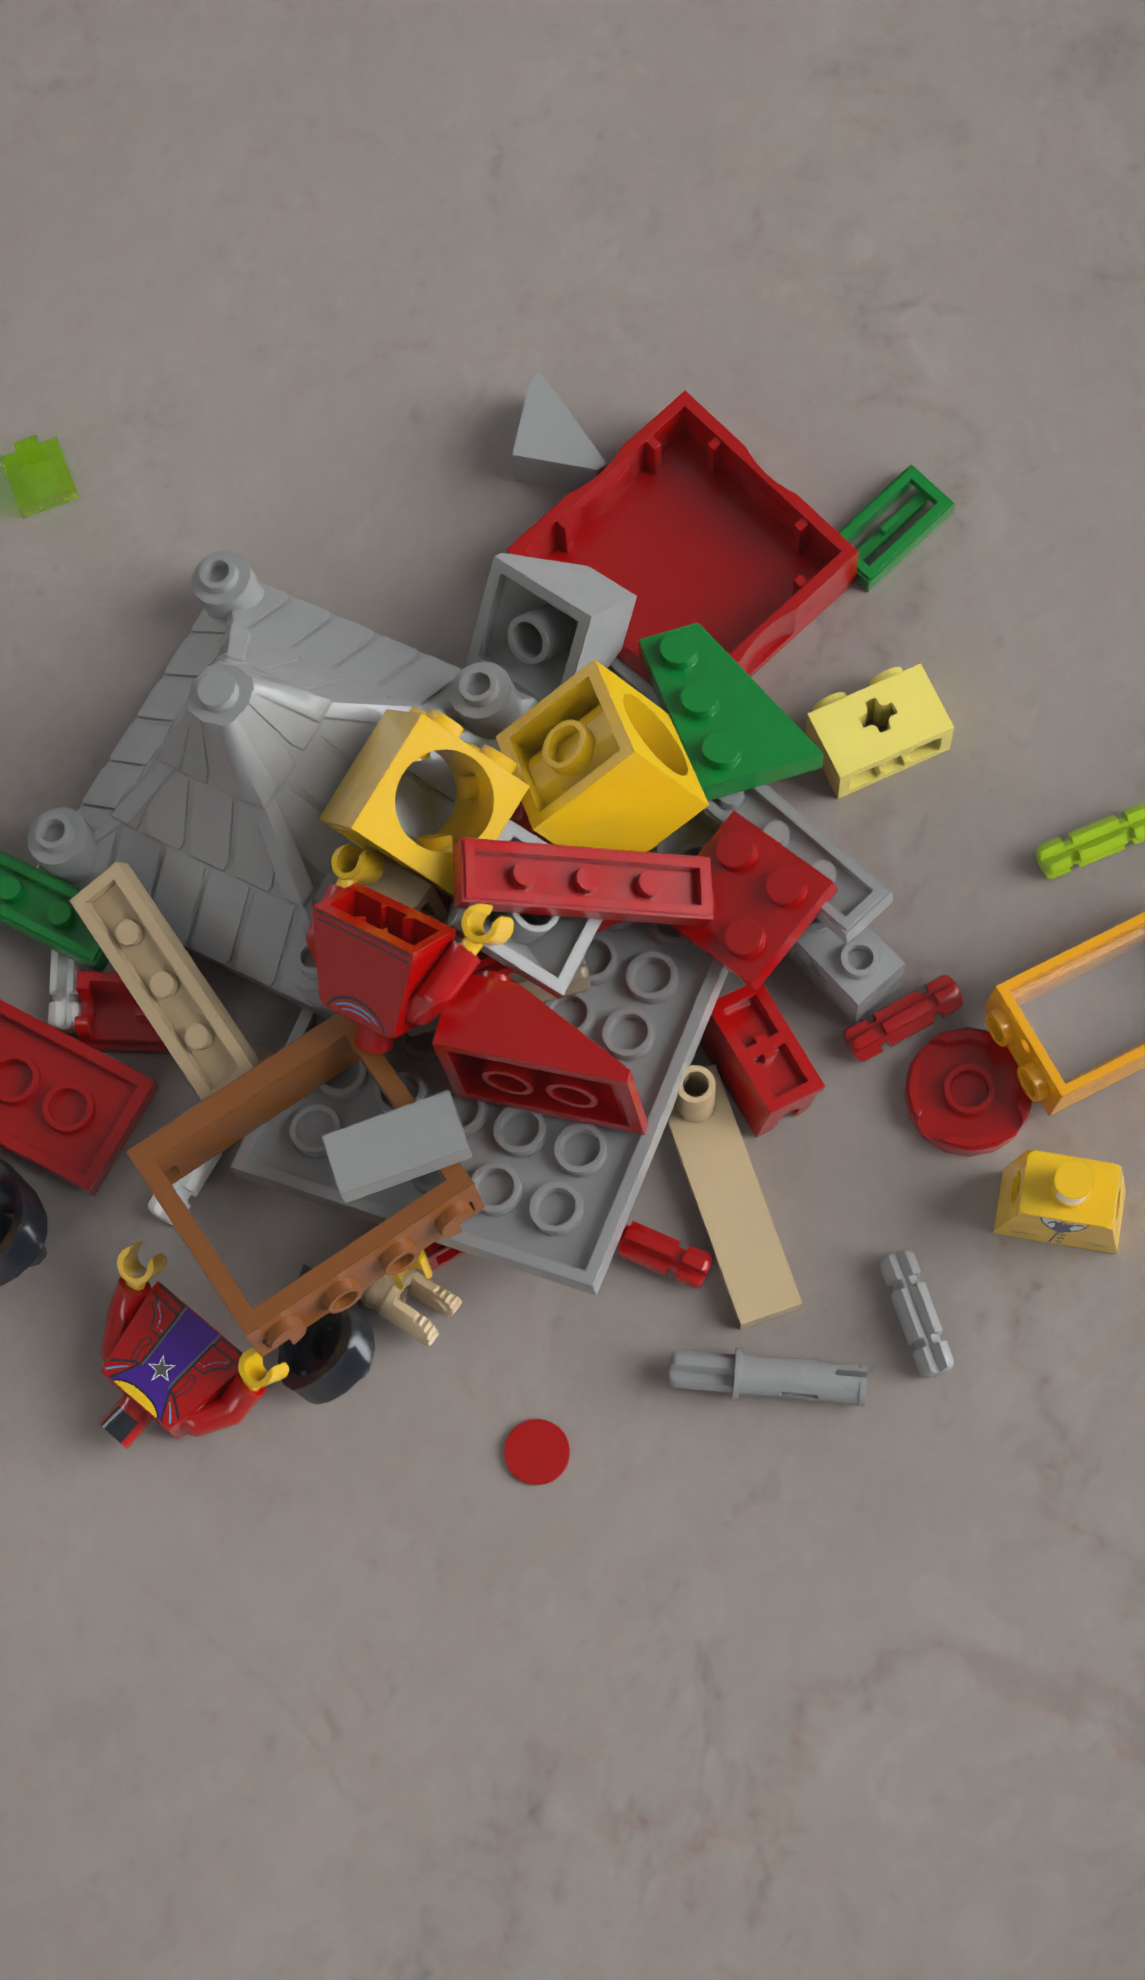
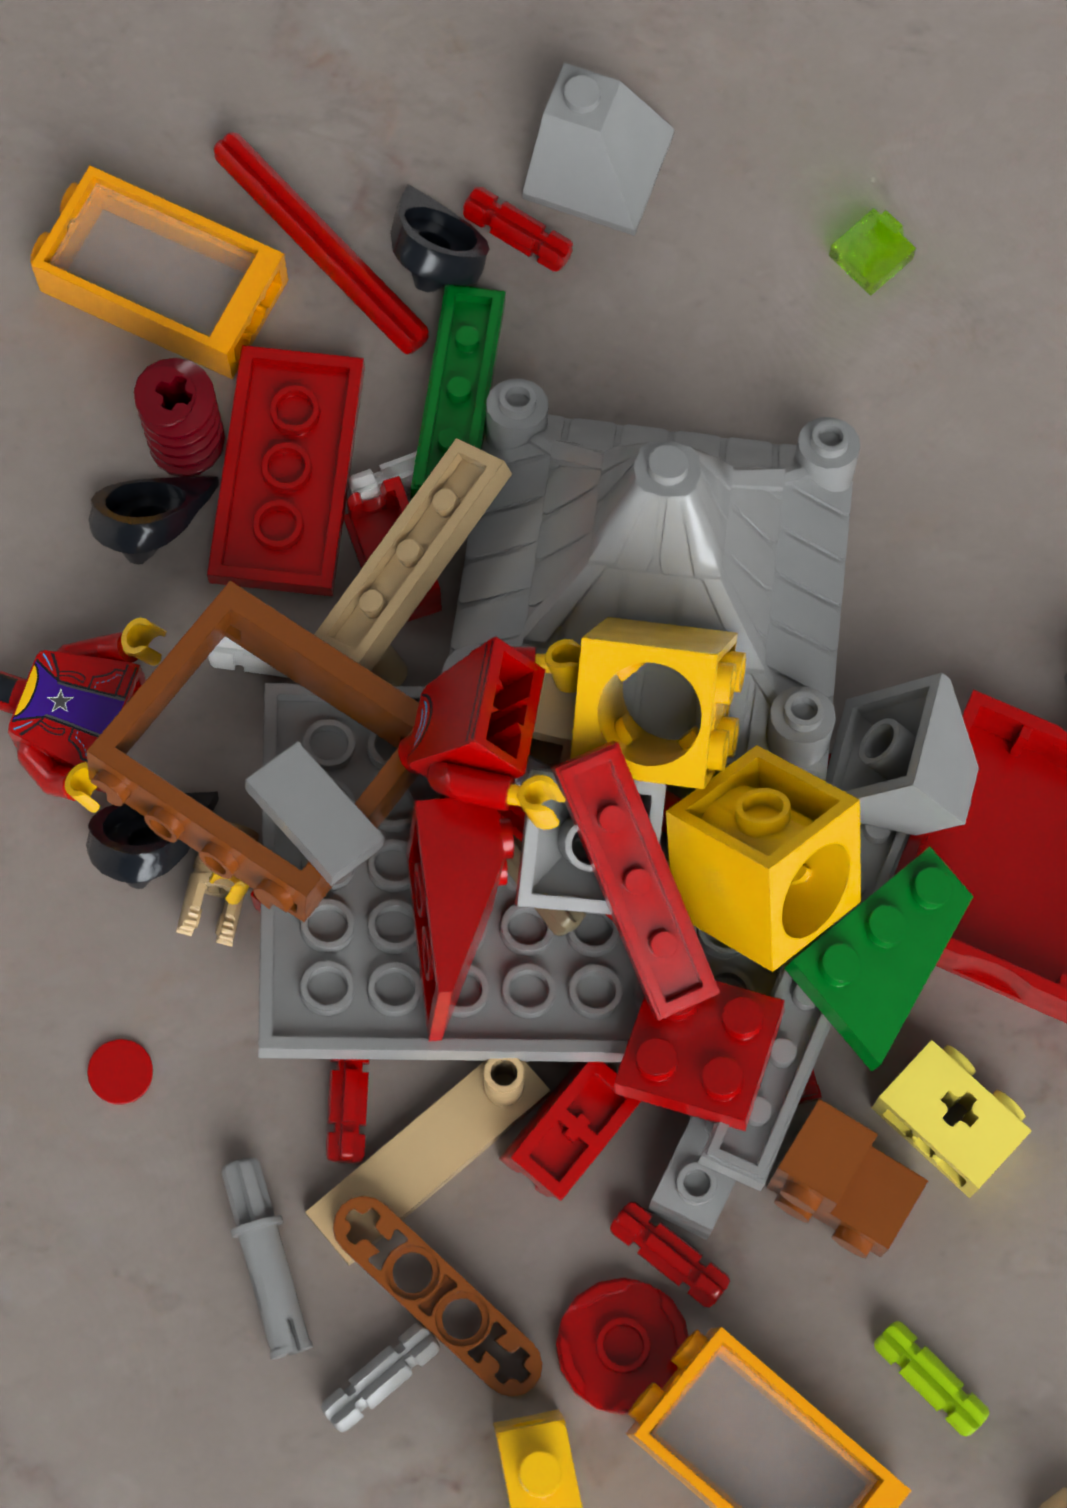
camera: 60 degrees right, 0 degrees up
(861, 1227) = (442, 1289): none -> dark orange beam
(906, 833) = (845, 1182): none -> dark orange brick

